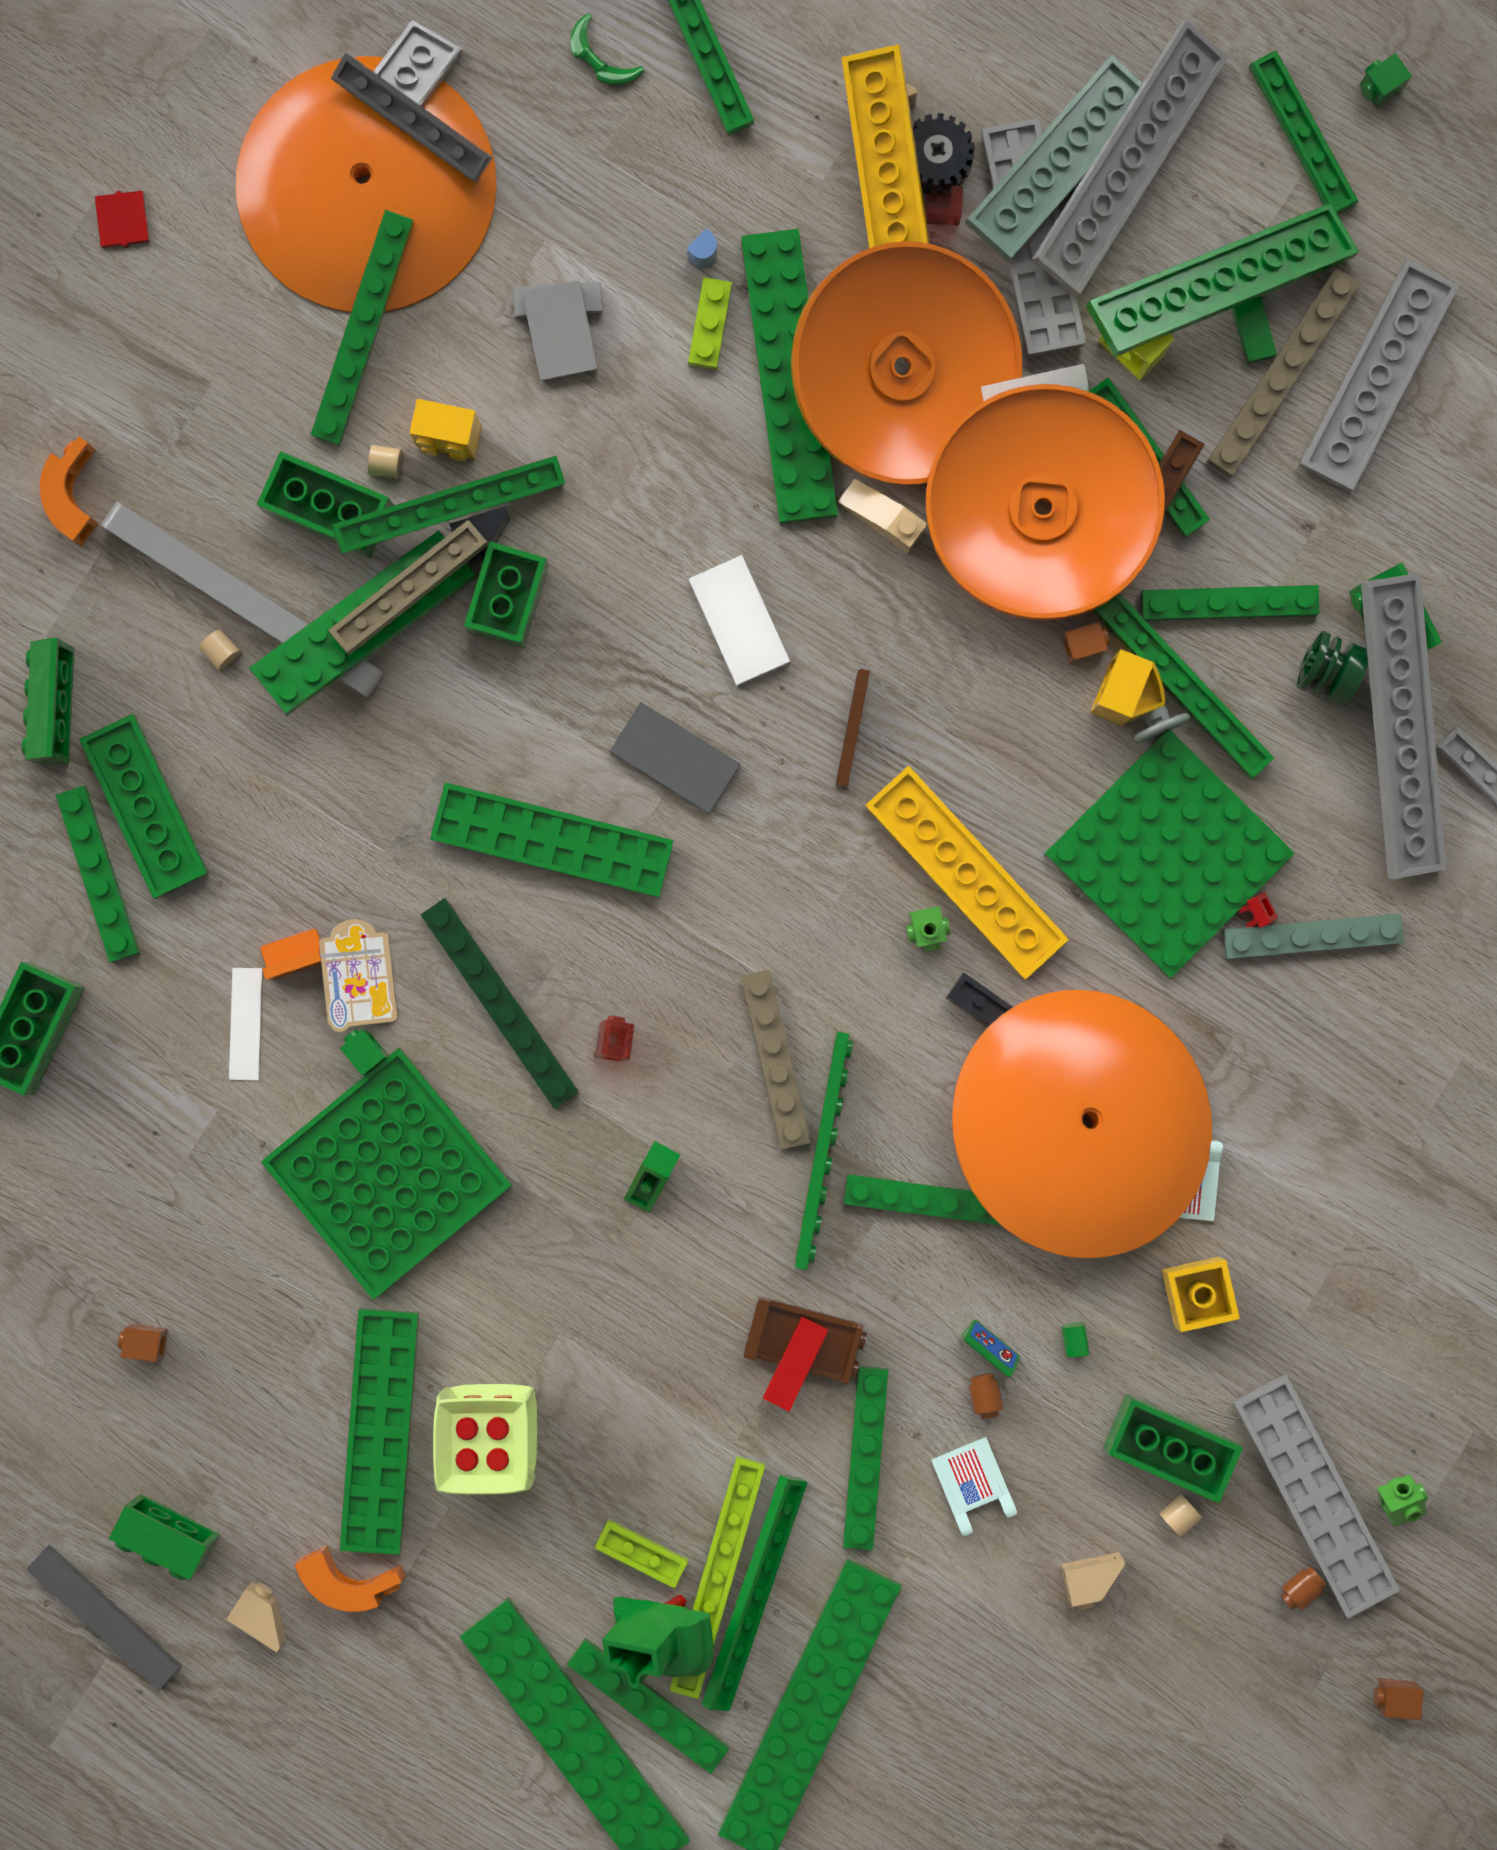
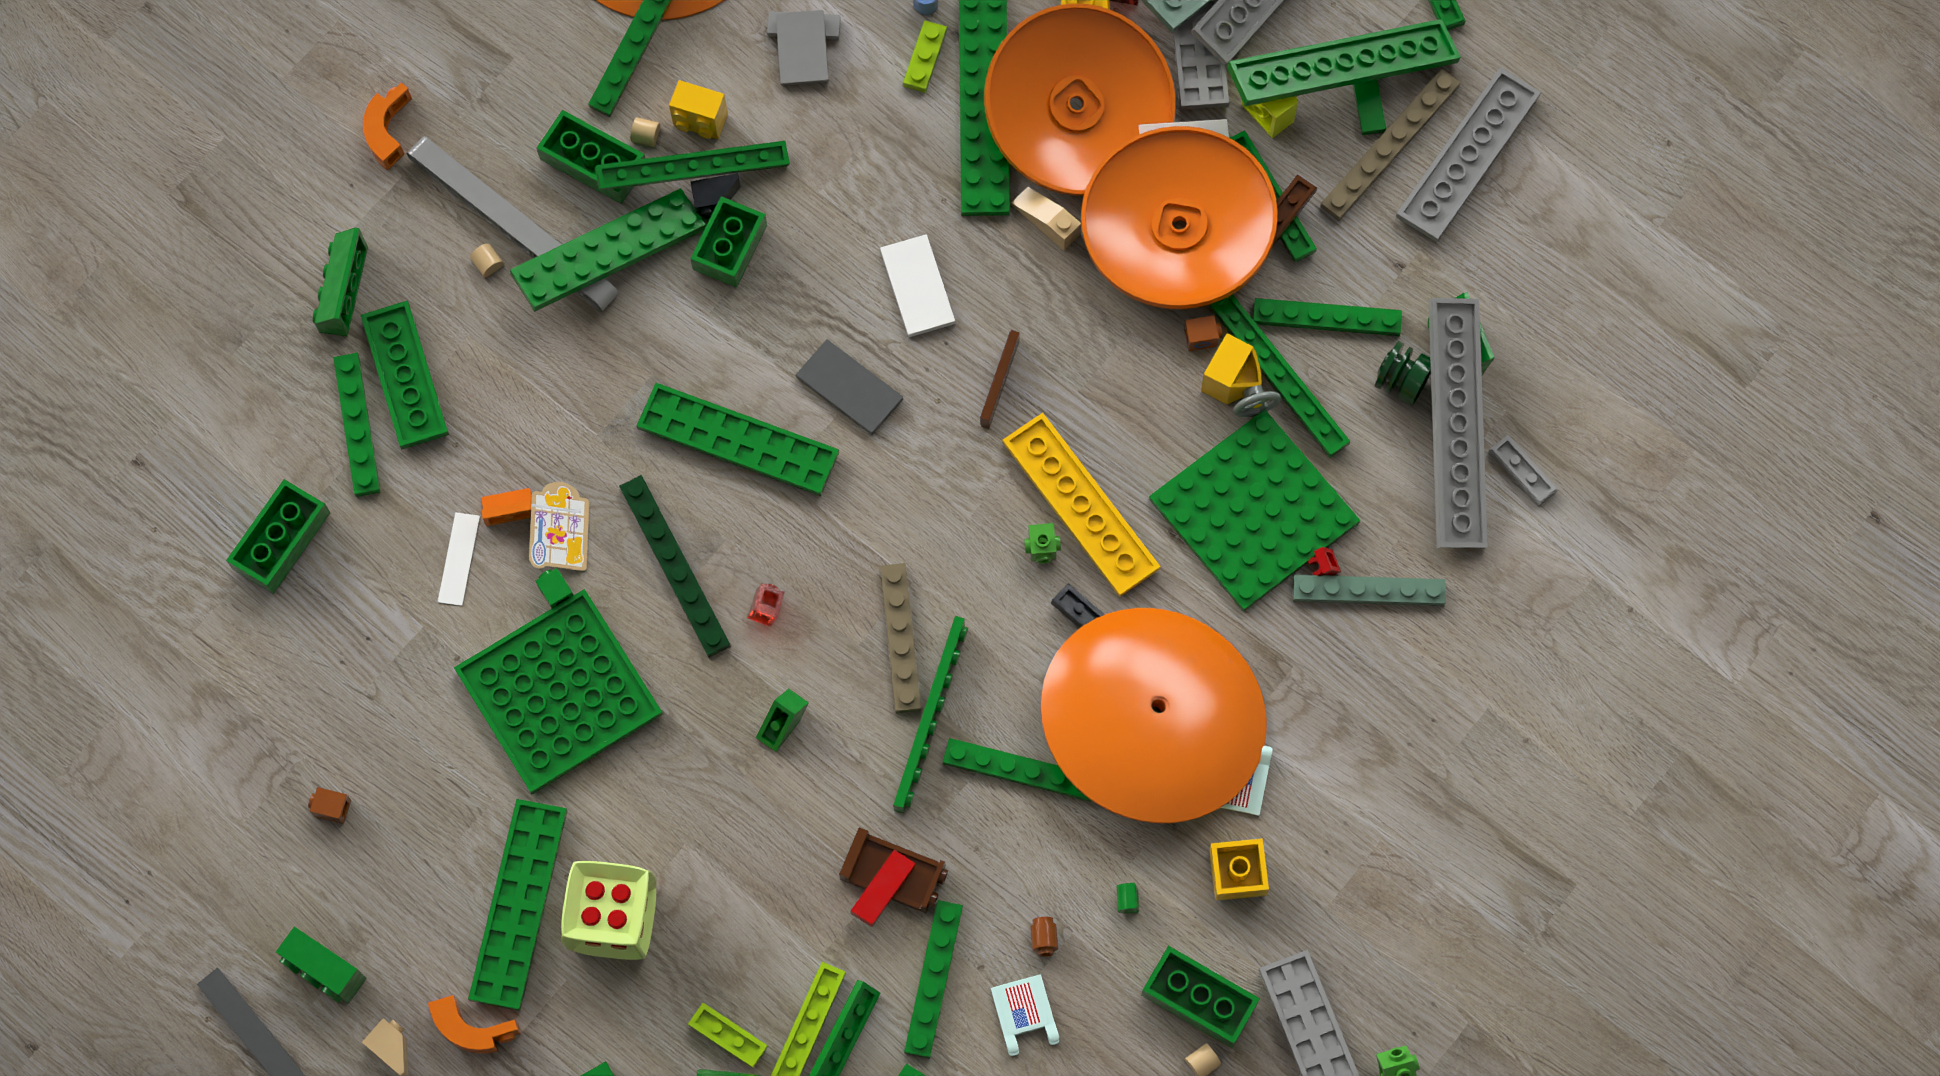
camera: 10 degrees right, 15 degrees down
(408, 587) = (649, 223): dark tan plate -> none
(990, 1347) = (1053, 898): slope -> none

